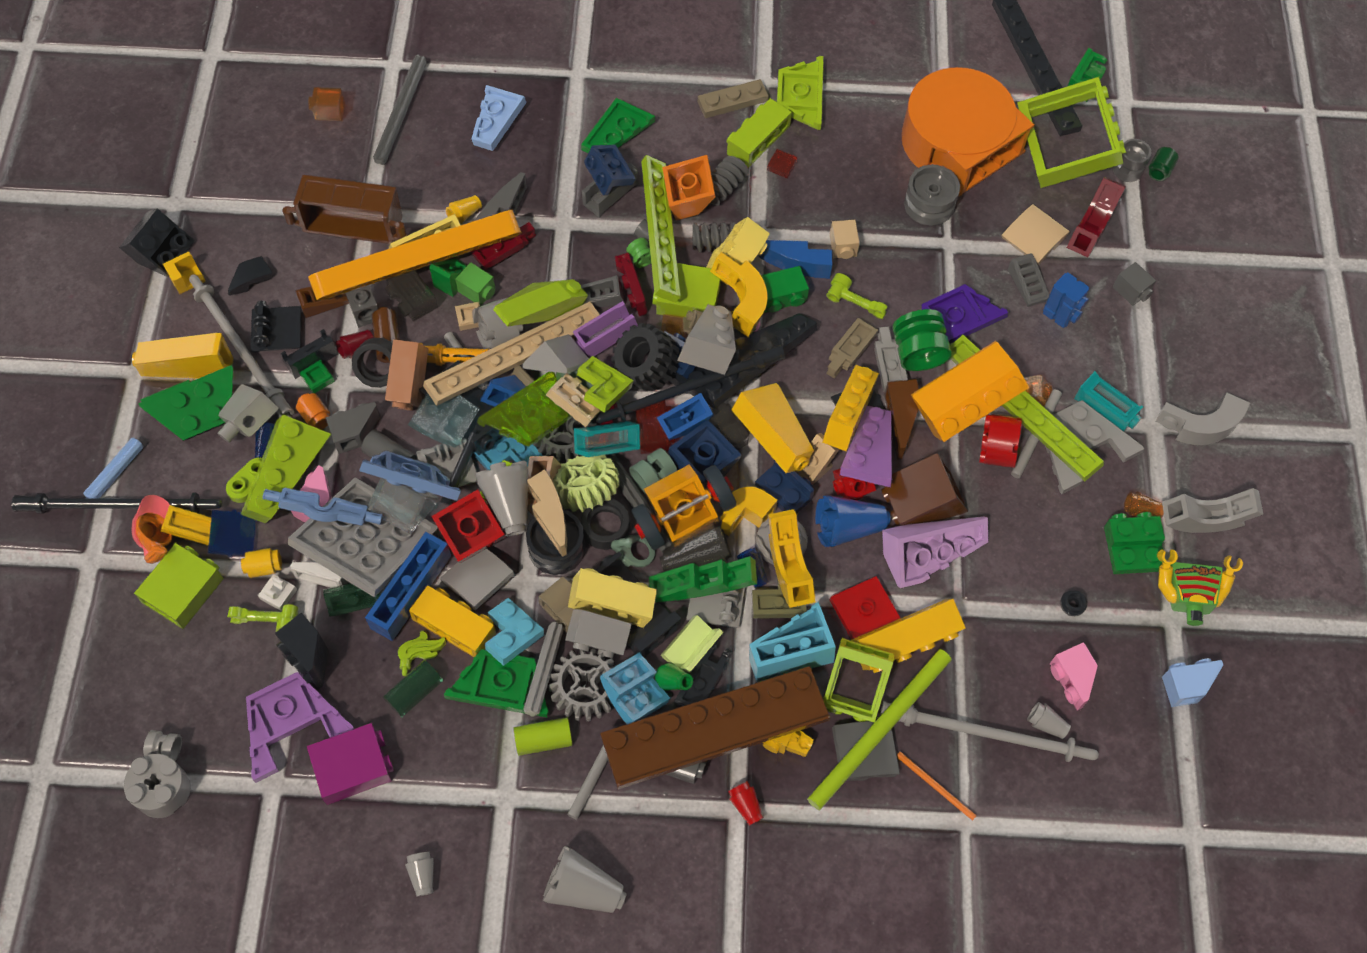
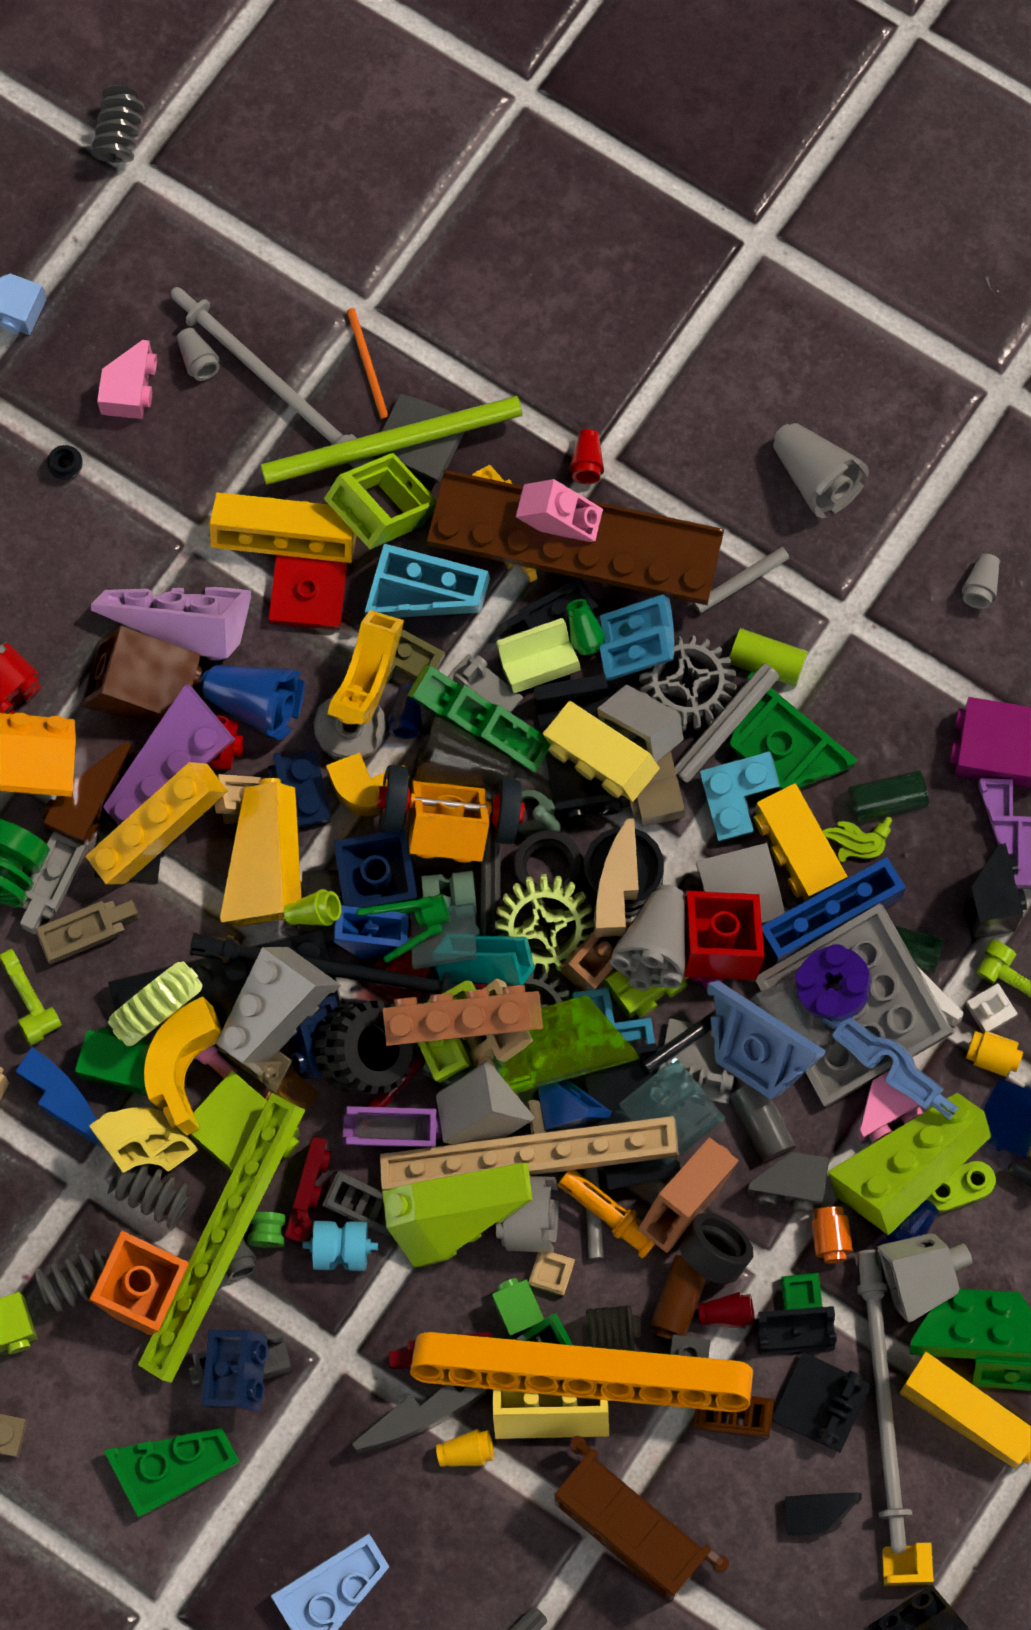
camera: 145 degrees left, 10 degrees up
(380, 517) = (835, 962): none -> dark purple plate
(592, 376) = (462, 1017): none -> nougat brick
(597, 262) = (340, 1245): none -> medium azure wheel
(638, 434) = (451, 946): none -> clear light blue piece
(654, 437) = (428, 911): none -> green plant
(722, 400) = (315, 909): none -> lime cone
(734, 727) = (559, 511): none -> bright pink slope
(778, 306) = (155, 1003): none -> yellowish green gear
(1225, 850) = (117, 125): none -> dark grey piece

